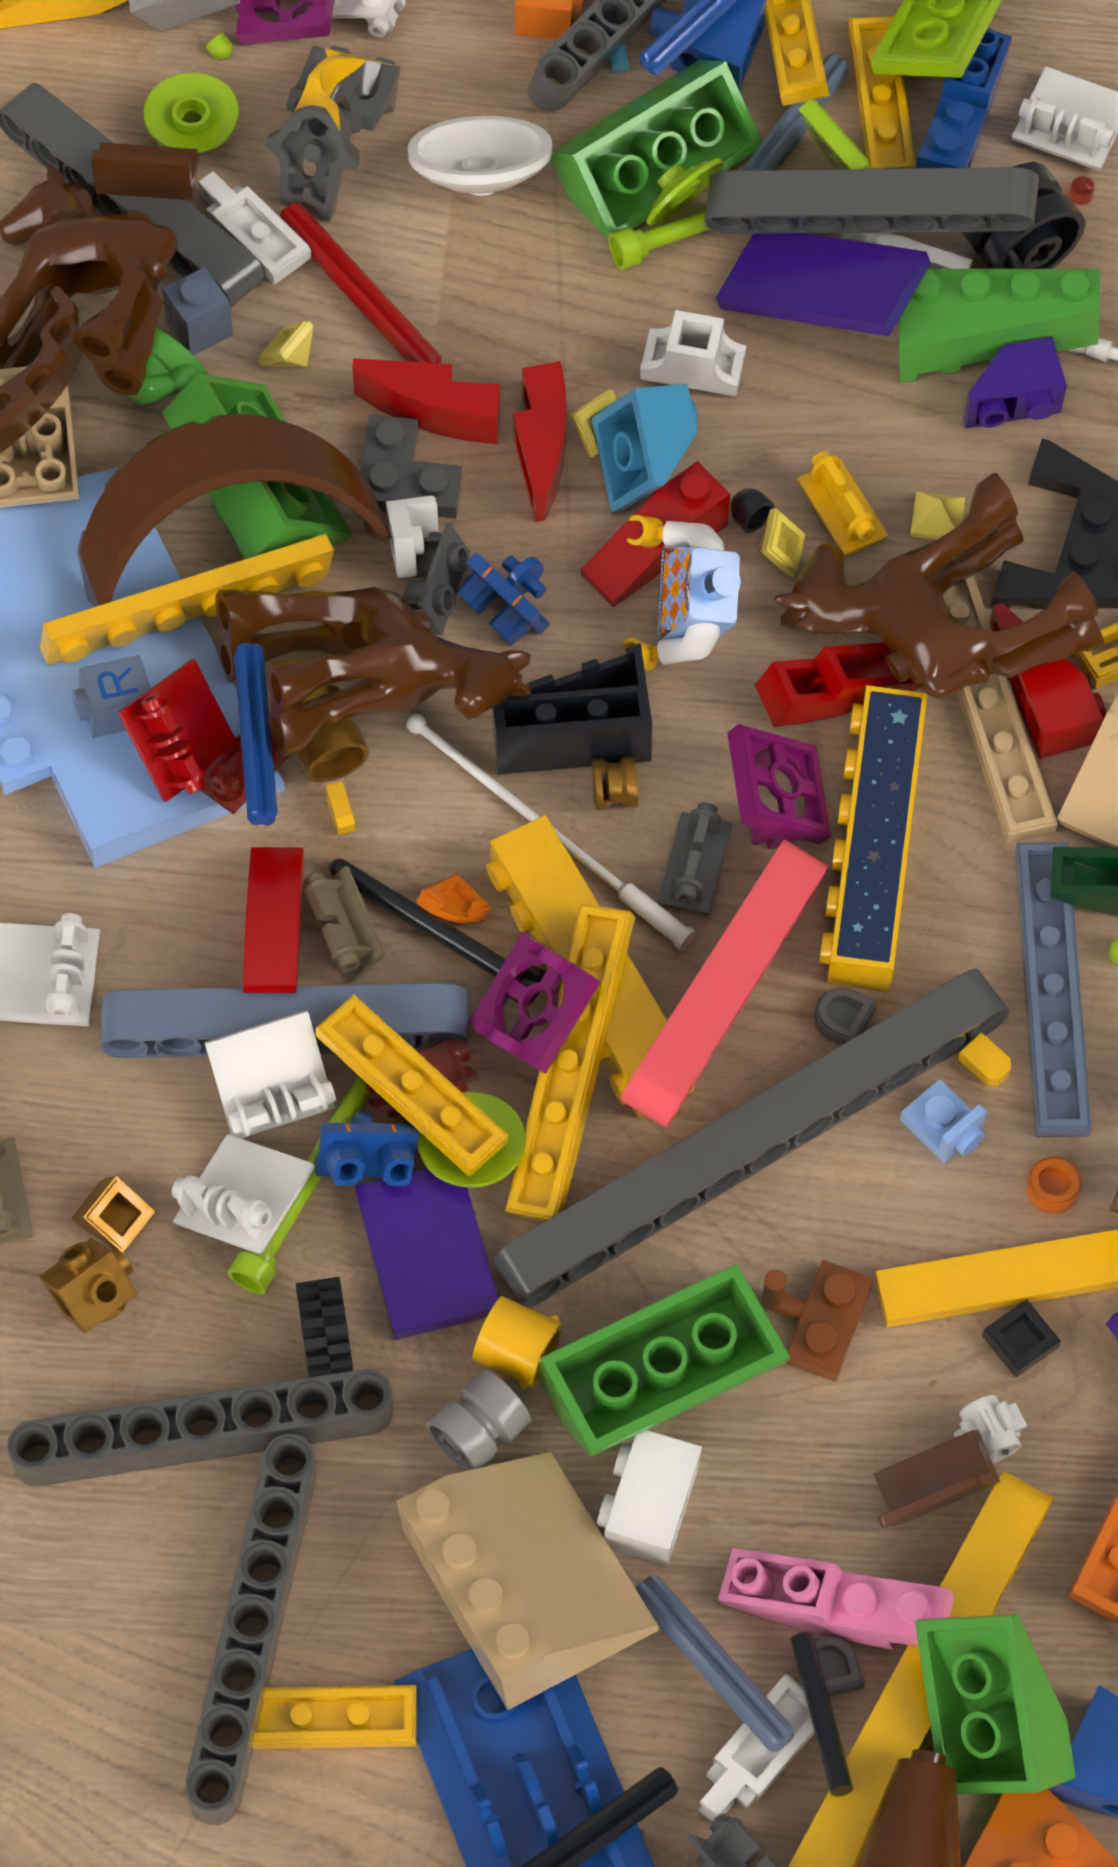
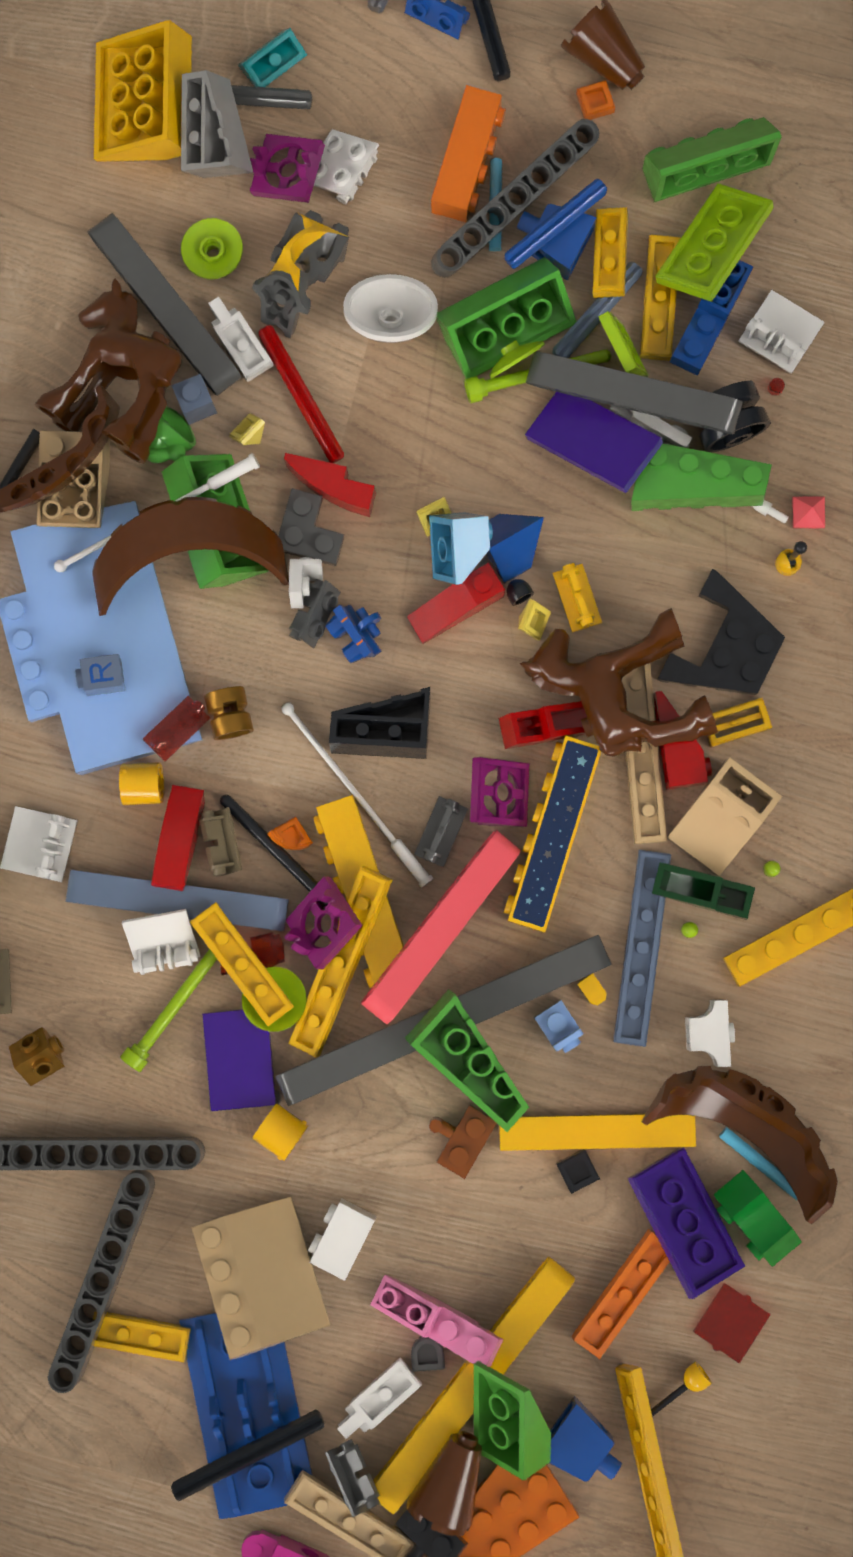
camera: 20 degrees right, 20 degrees up
(113, 1213) = (59, 1005): pearl gold slope -> none
(145, 171) = (173, 295): reddish brown panel -> none
(174, 603) = (144, 615): yellow plate -> none
(177, 730) = (136, 707): red hinge -> none
(200, 853) = (141, 783): none -> yellow piece
(220, 47) = (239, 197): lime piece -> none
(241, 1193) = (135, 1010): white hinge -> none
(251, 401) = (213, 483): none -> white piece
(255, 734) = (181, 719): blue axle -> none
(324, 1327) = (167, 1109): black tyre -> none
(340, 808) = (232, 762): yellow piece -> none
(366, 1150) = (210, 994): blue hips -> none
(370, 639) = (278, 678): reddish brown animal -> none
(487, 1415) = (247, 1180): light grey wheel -> none
(541, 434) = (397, 520): red slope -> none
(620, 783) = (404, 772): pearl gold wheel -> none
(661, 1361) = (361, 1166): bright green slope -> none
(694, 354) = (502, 478): white brick -> none
(695, 590) = (471, 653): torso -> none
(715, 1664) = (359, 1348): sand blue axle -> none
(732, 441) = (513, 544): none -> blue slope
(809, 1169) = (461, 1054): none -> bright green wedge
(821, 1714) = (414, 1392): black bar -> none
(843, 1014) = (512, 946): dark grey tile -> none
(935, 515) = (636, 612): light yellow slope -> none
(935, 1478) = (507, 1263): reddish brown panel -> none
(997, 1425) = (546, 1231): white gear -> none
(1017, 385) = (706, 527): dark purple slope -> none
(1053, 1184) = (616, 1076): orange tile -> none

